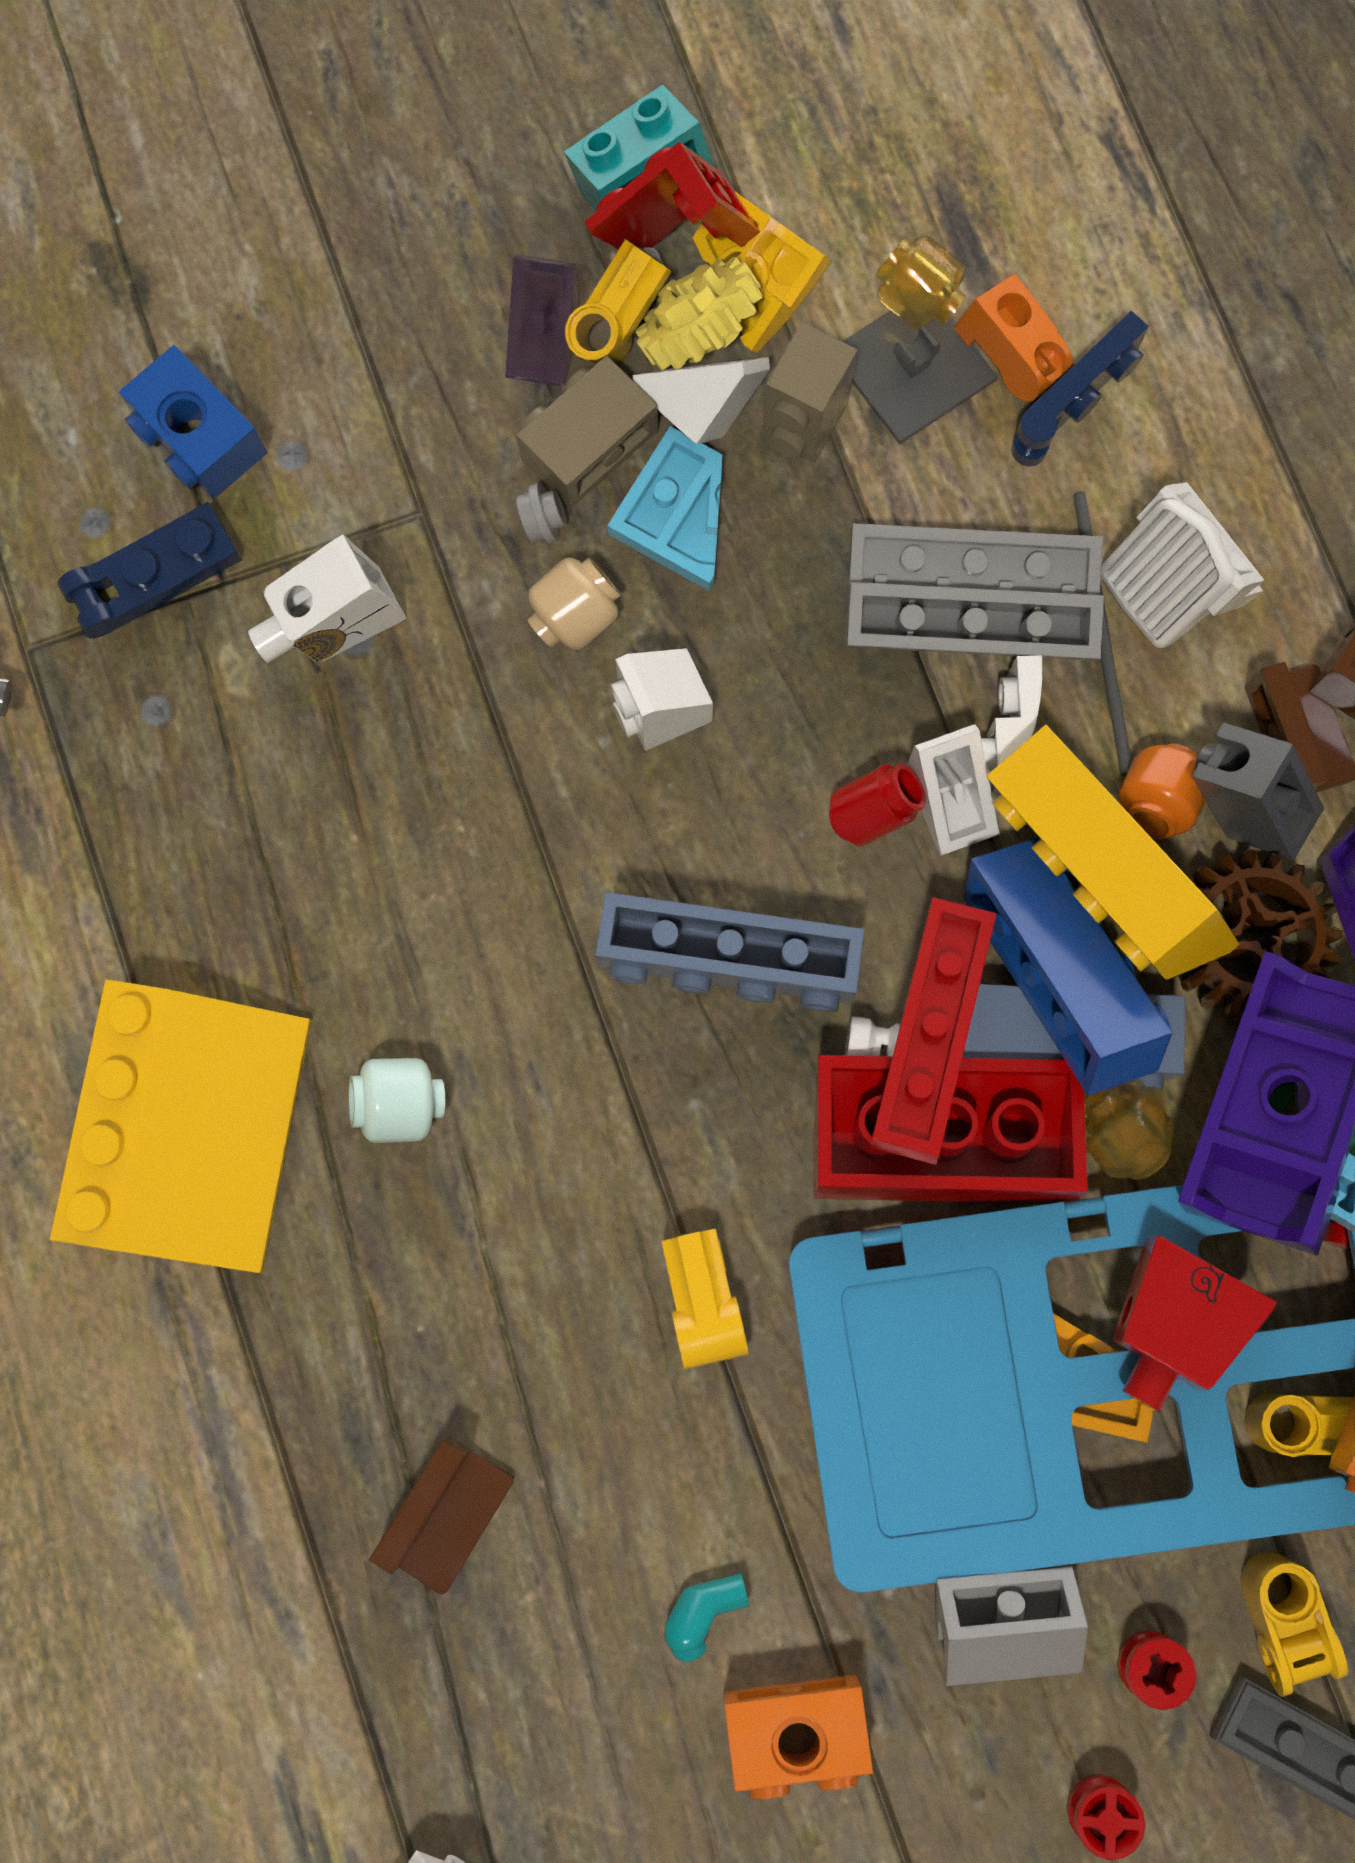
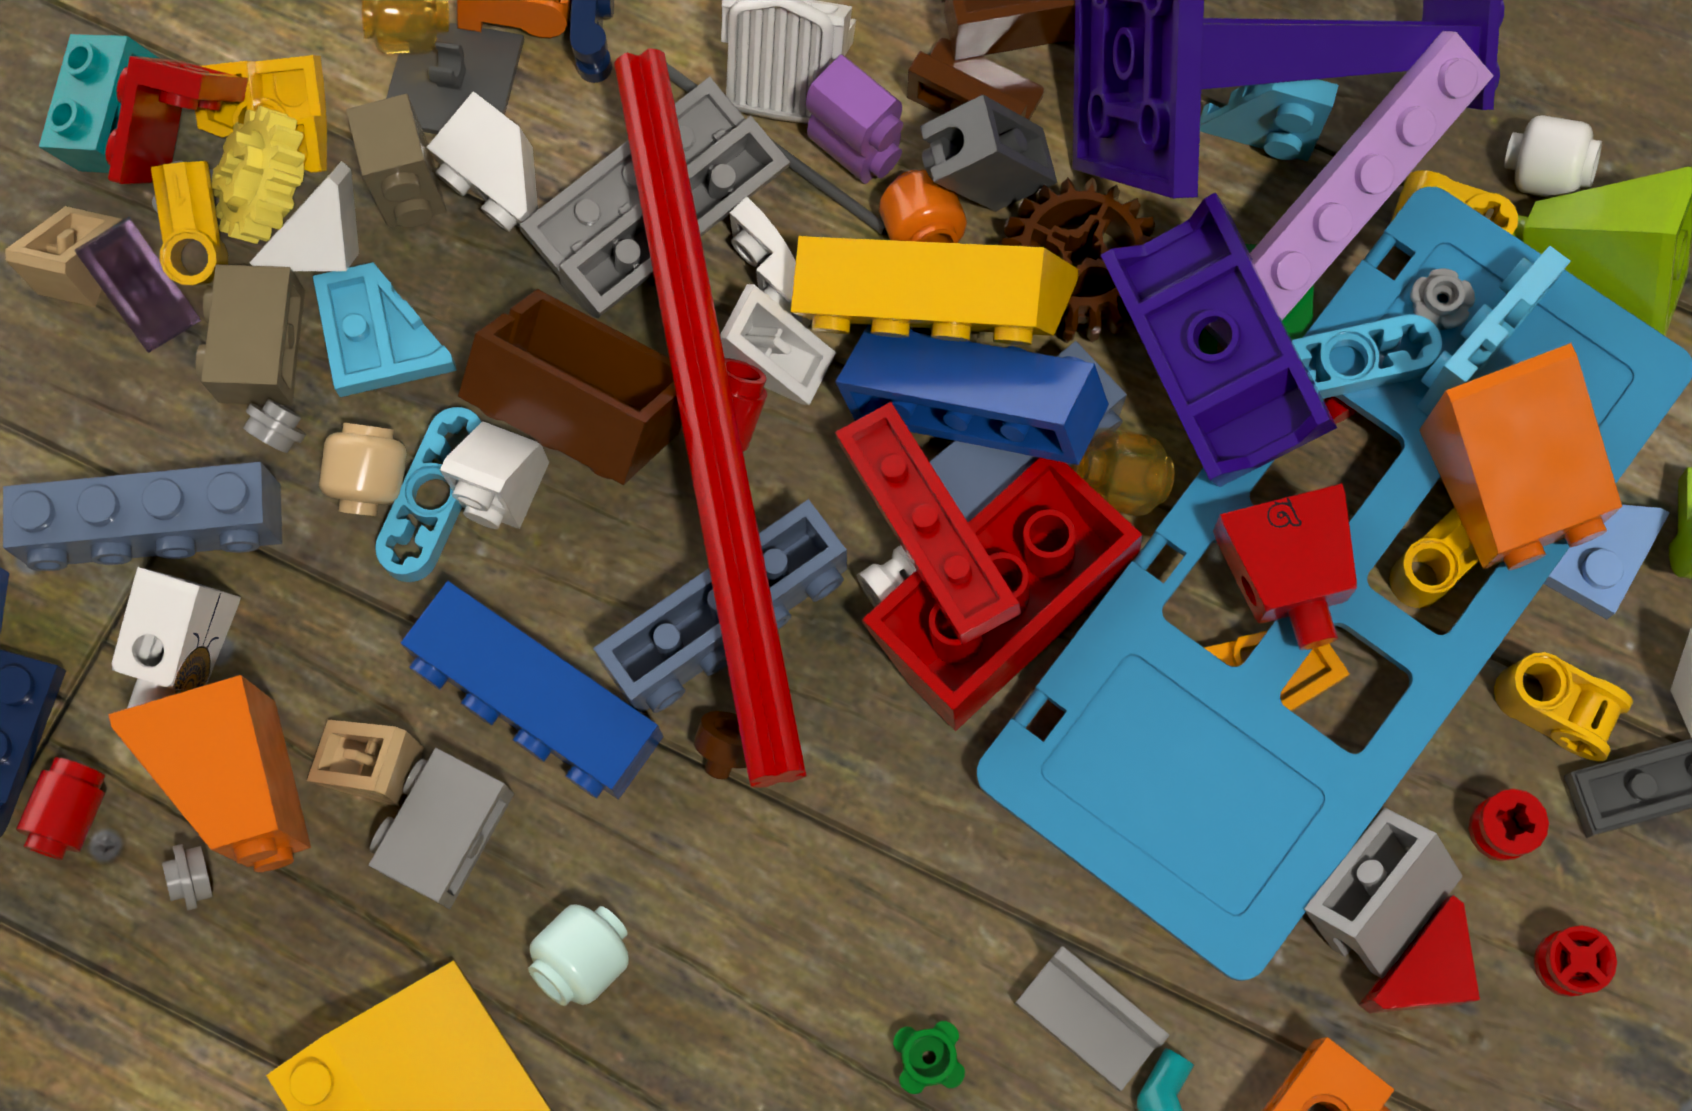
camera: 45 degrees left, 5 degrees down
(147, 658) = (61, 808): none -> red brick
(186, 786) = (187, 876): none -> light grey plate
(272, 735) = (223, 768): none -> orange slope
(379, 821) = (365, 760): none -> tan slope
(384, 916) = (440, 827): none -> light grey brick
(390, 497) = (142, 516): none -> sand blue brick
(497, 236) = (49, 258): none -> tan slope
(538, 880) = (532, 691): none -> blue brick
(557, 668) = (398, 528): none -> medium azure beam
(568, 1430) = (918, 1074): none -> green plate
(641, 1048) = (720, 743): none -> reddish brown tile
(705, 1313) = (961, 887): yellow piece -> none
(706, 1500) = (1091, 1019): none -> light grey panel
(779, 686) = (574, 386): none -> reddish brown piece
(848, 798) = (709, 424): none -> red axle
(882, 453) = (491, 157): none -> white slope
(990, 1716) = (1433, 969): none -> red slope
(1181, 670) = (855, 120): none -> medium lavender brick

